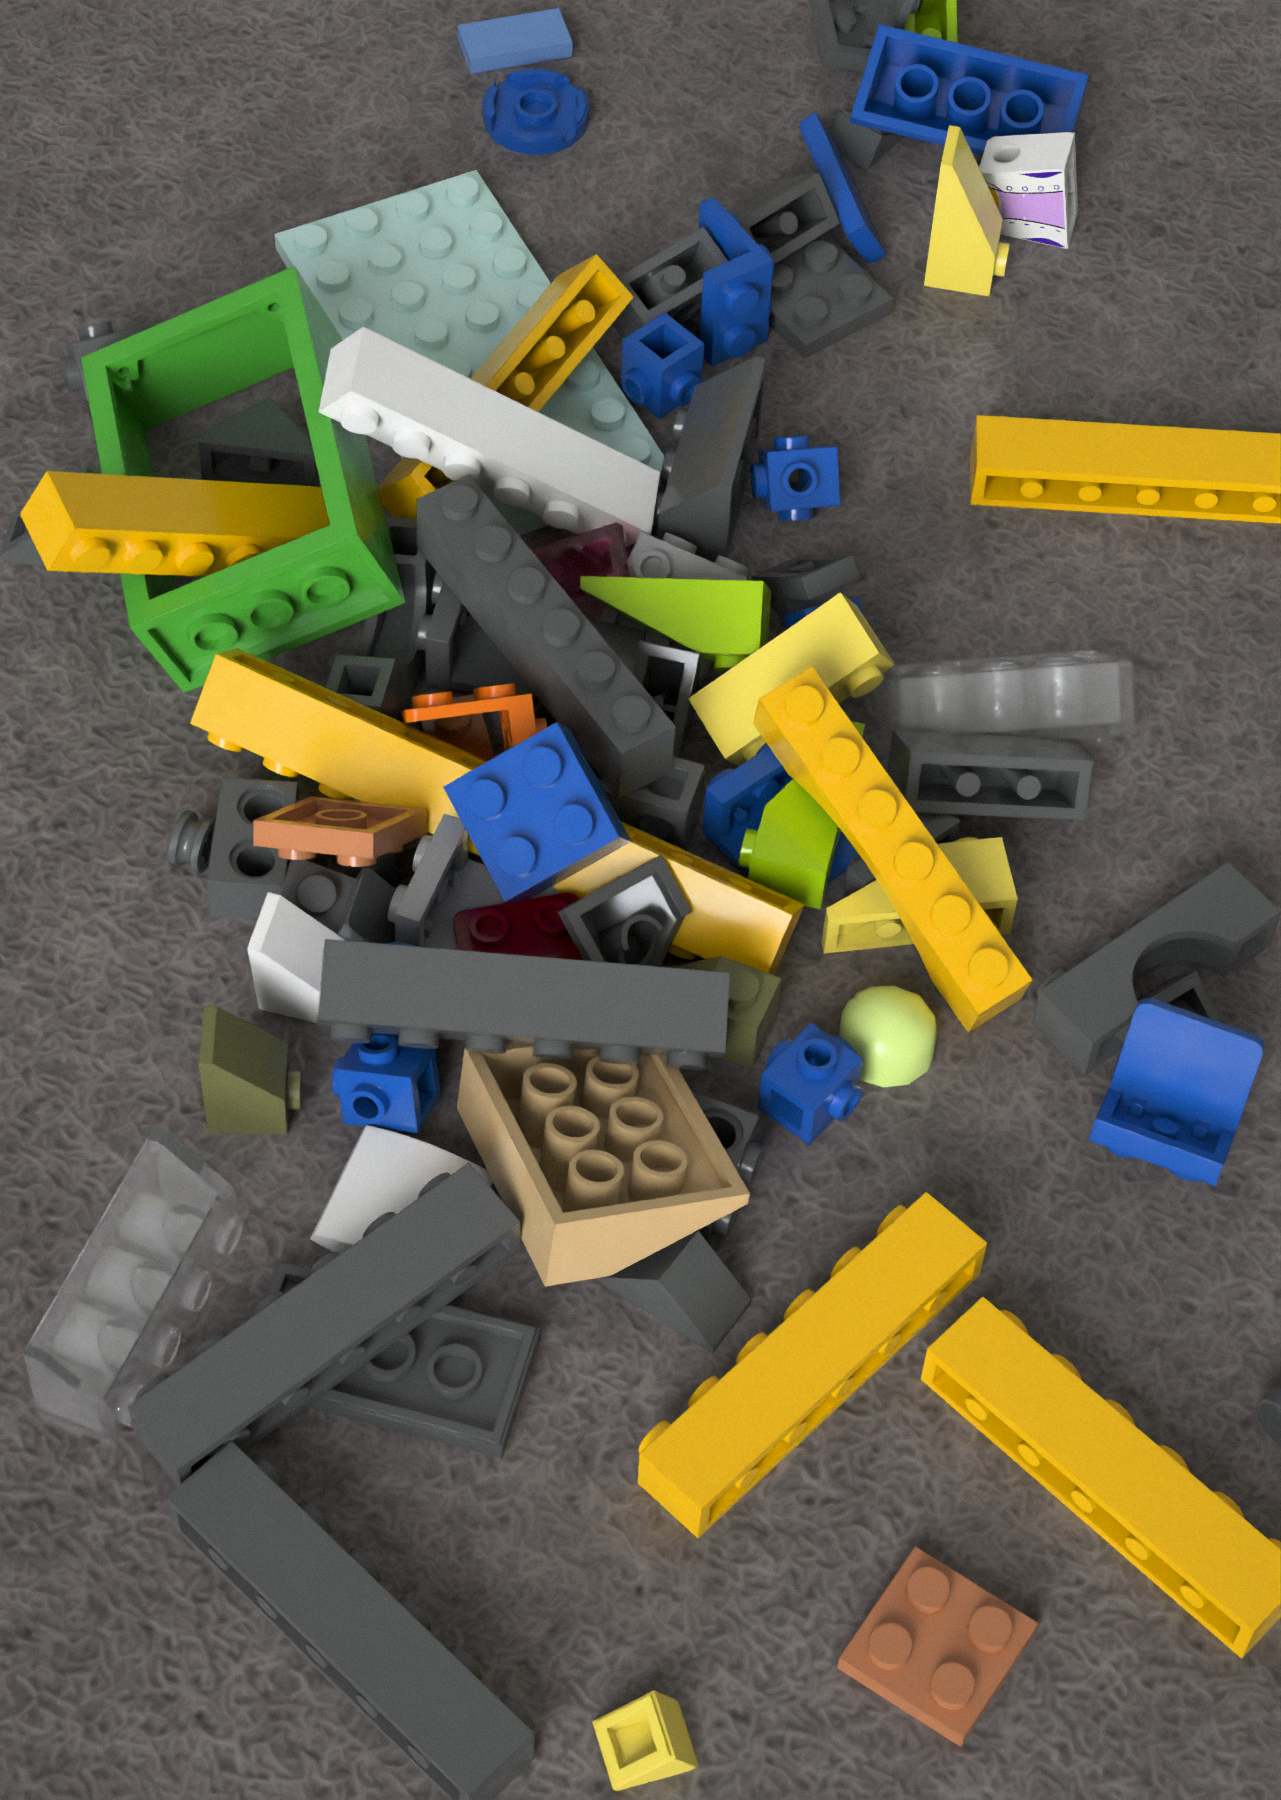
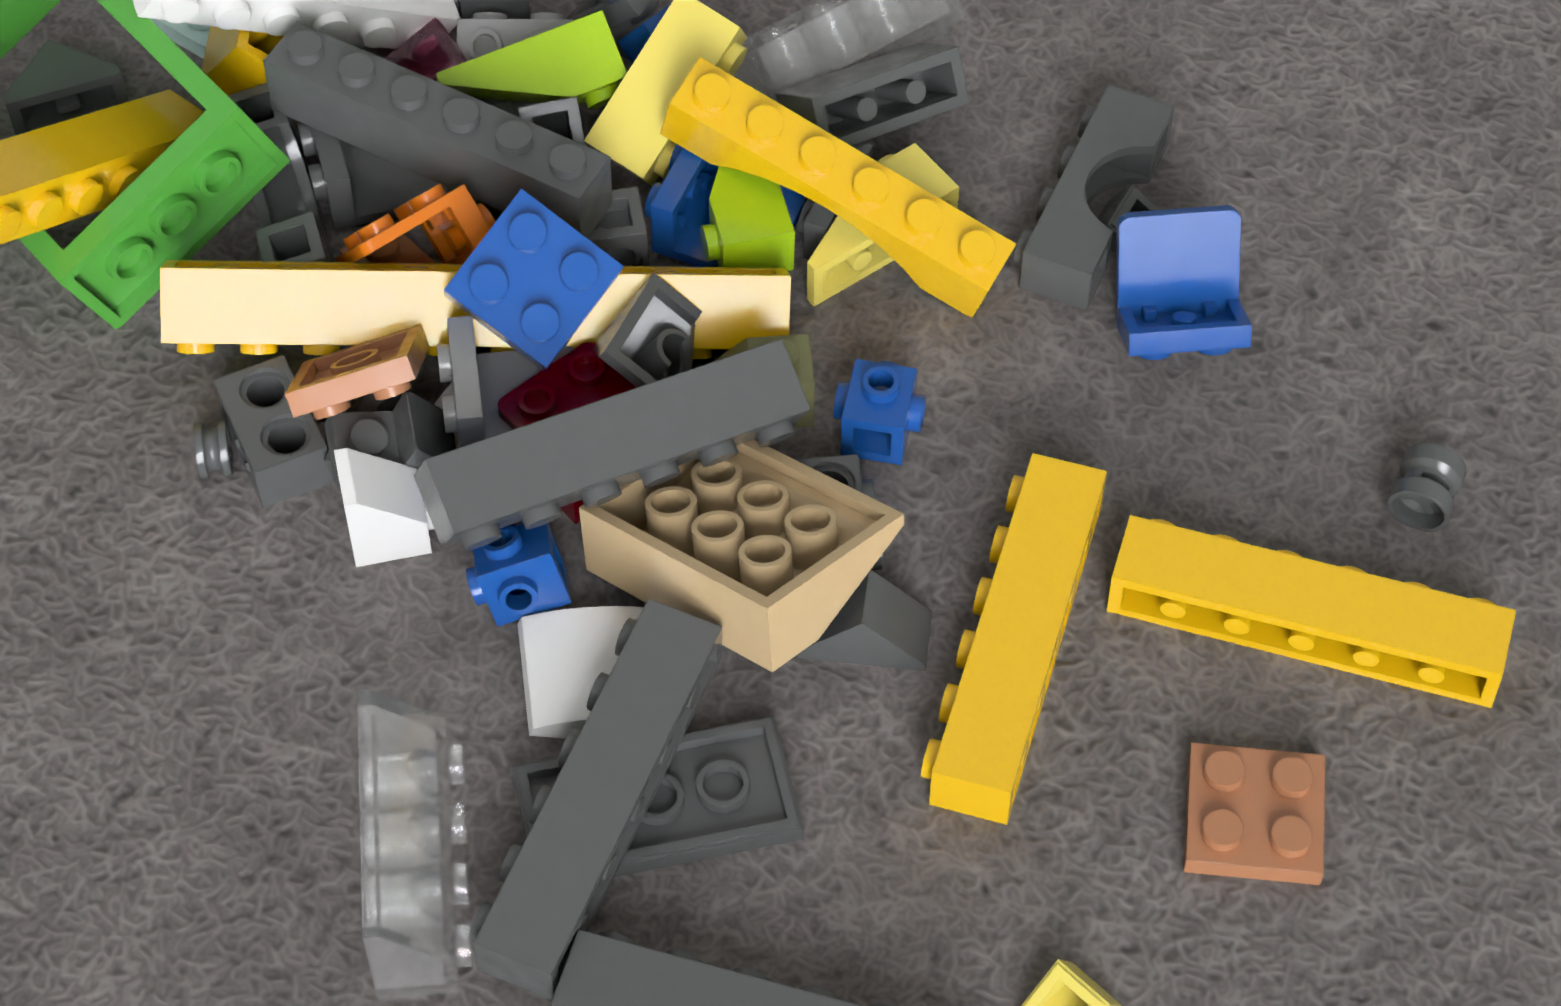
camera: 25 degrees left, 0 degrees up
(245, 1076) = (392, 624): olive slope -> none
(891, 1034) = (914, 338): yellowish green hair -> none

